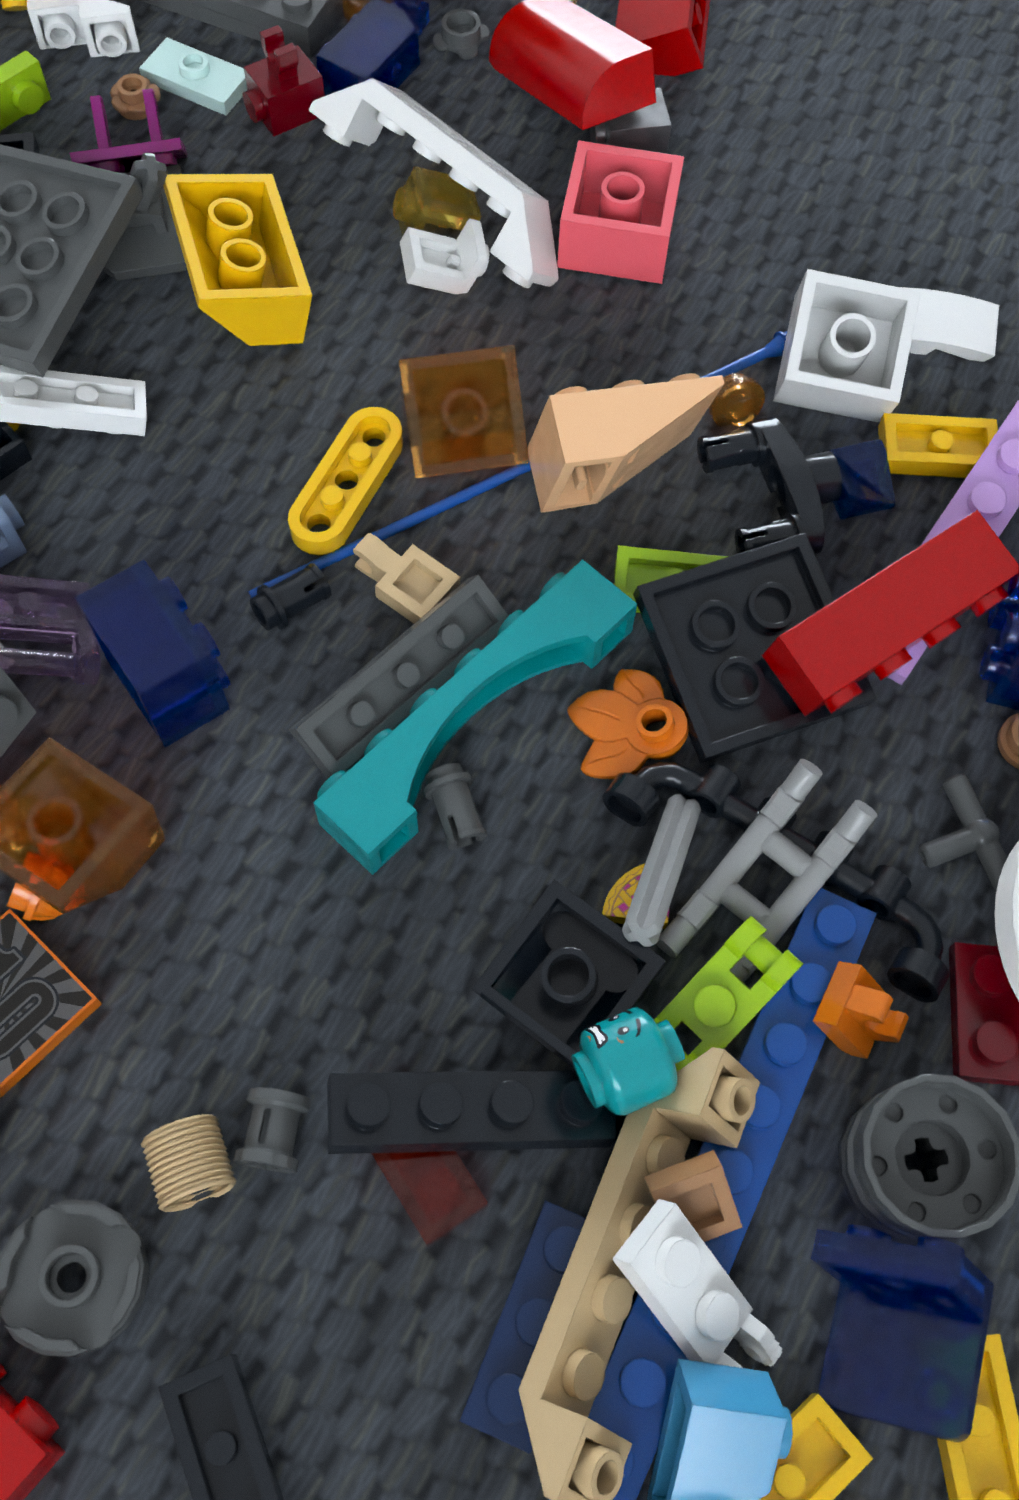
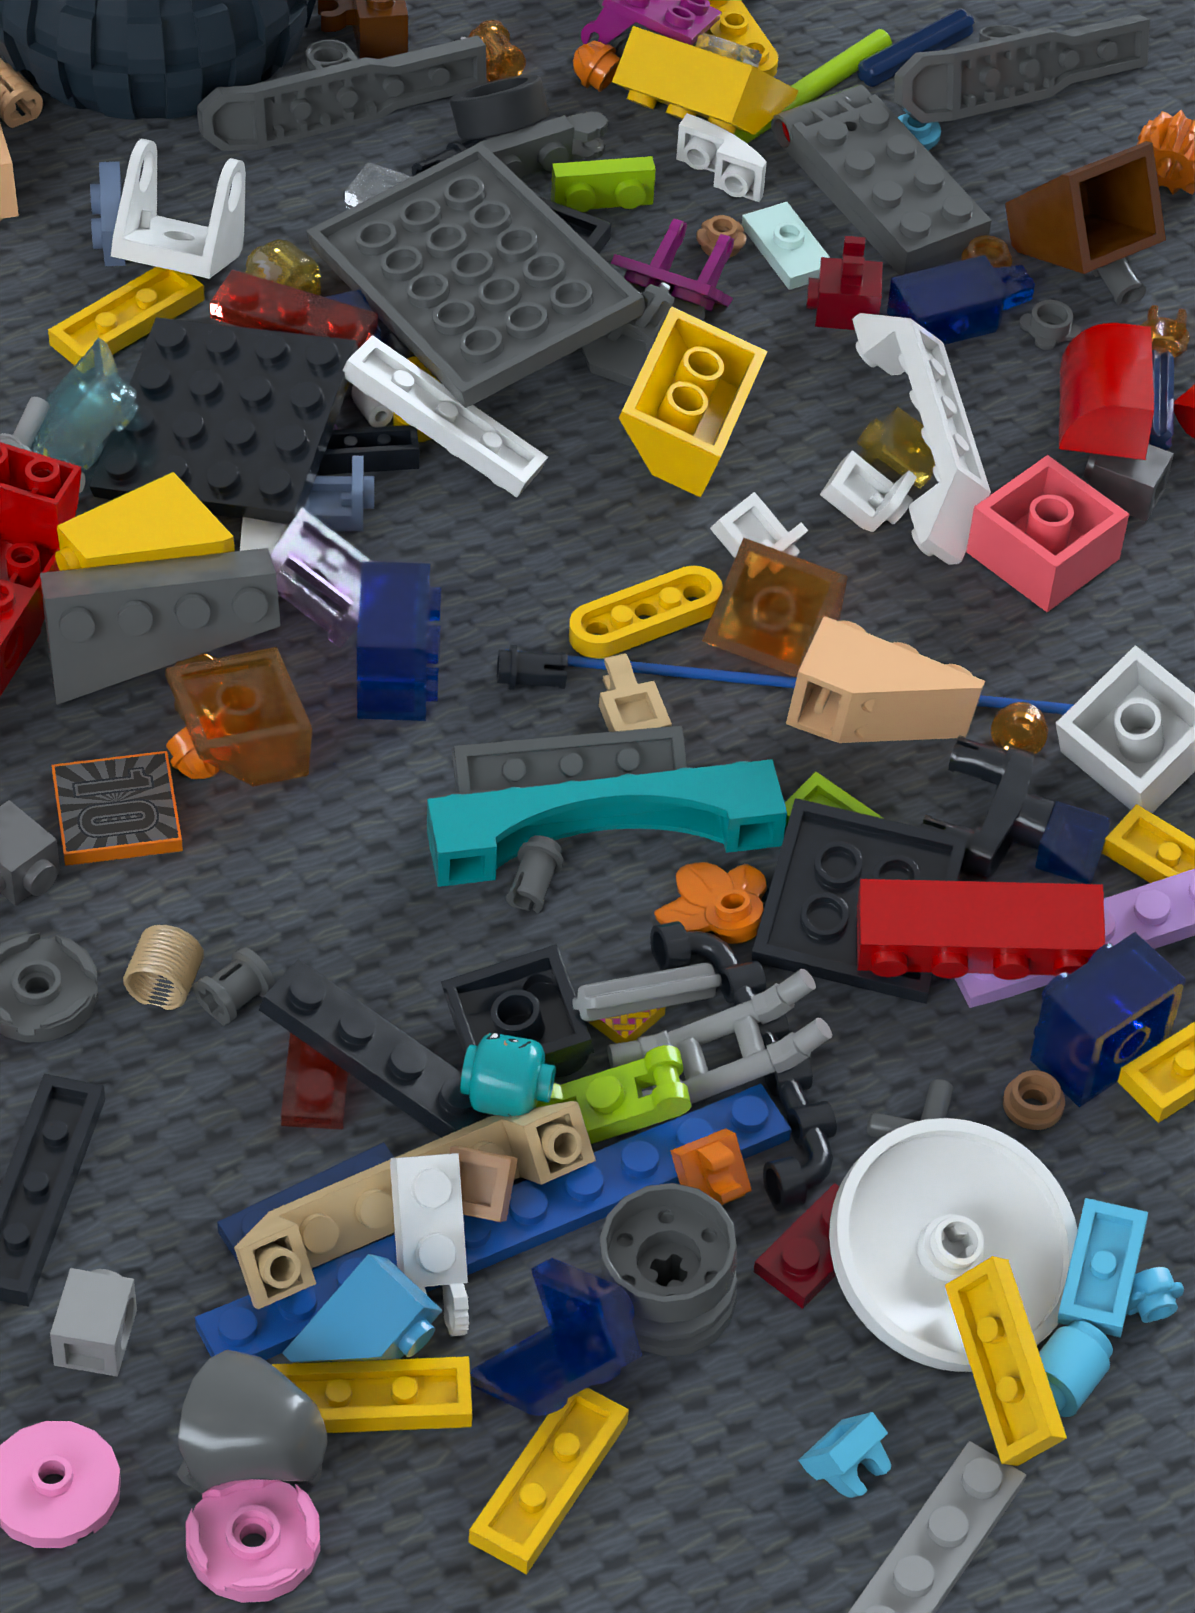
camera: 35 degrees right, 15 degrees down
(376, 347) = (756, 522): none -> white bracket

